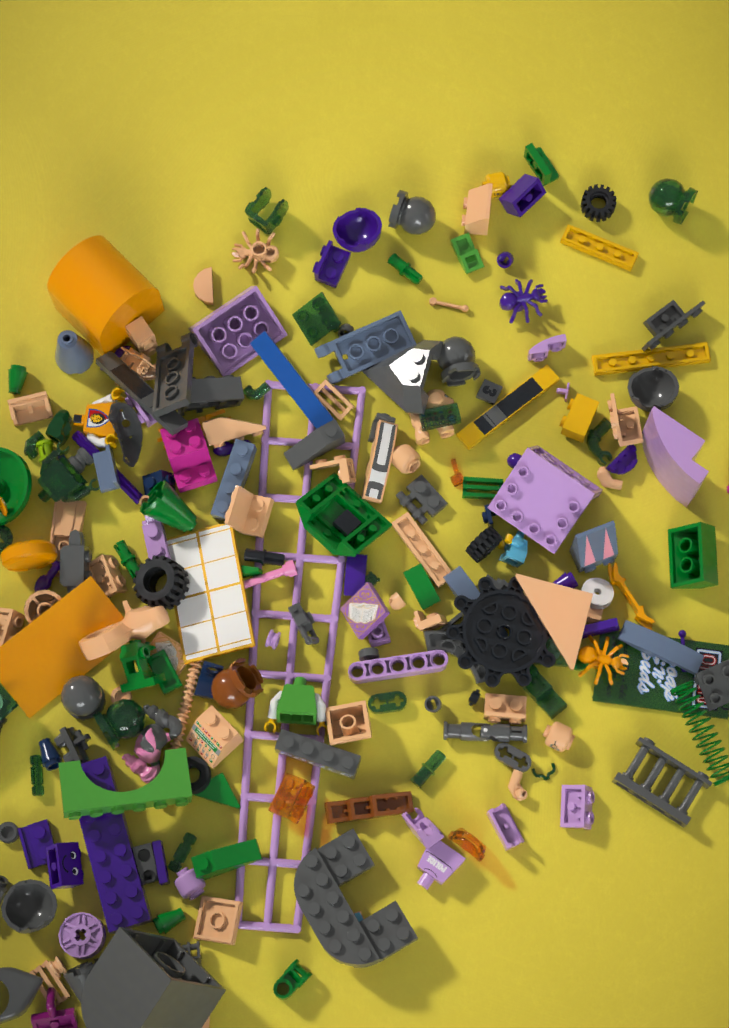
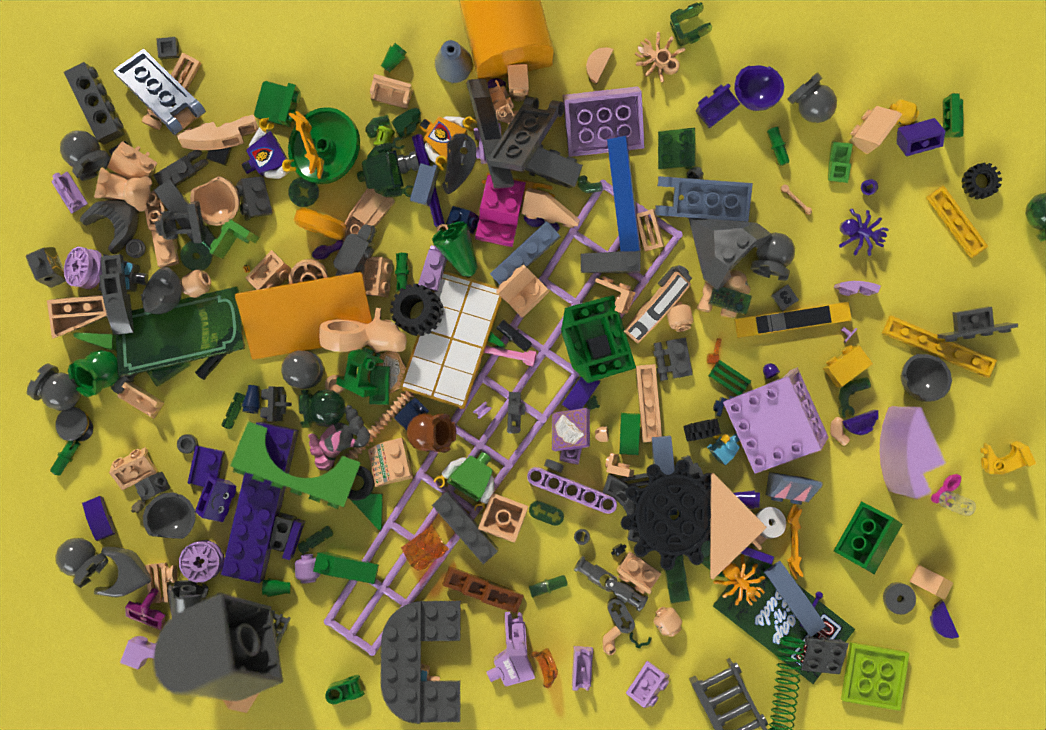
camera: 25 degrees right, 15 degrees up
(218, 920) = (314, 610): light nougat plate -> none
(625, 423) = (883, 394): light nougat bracket -> none

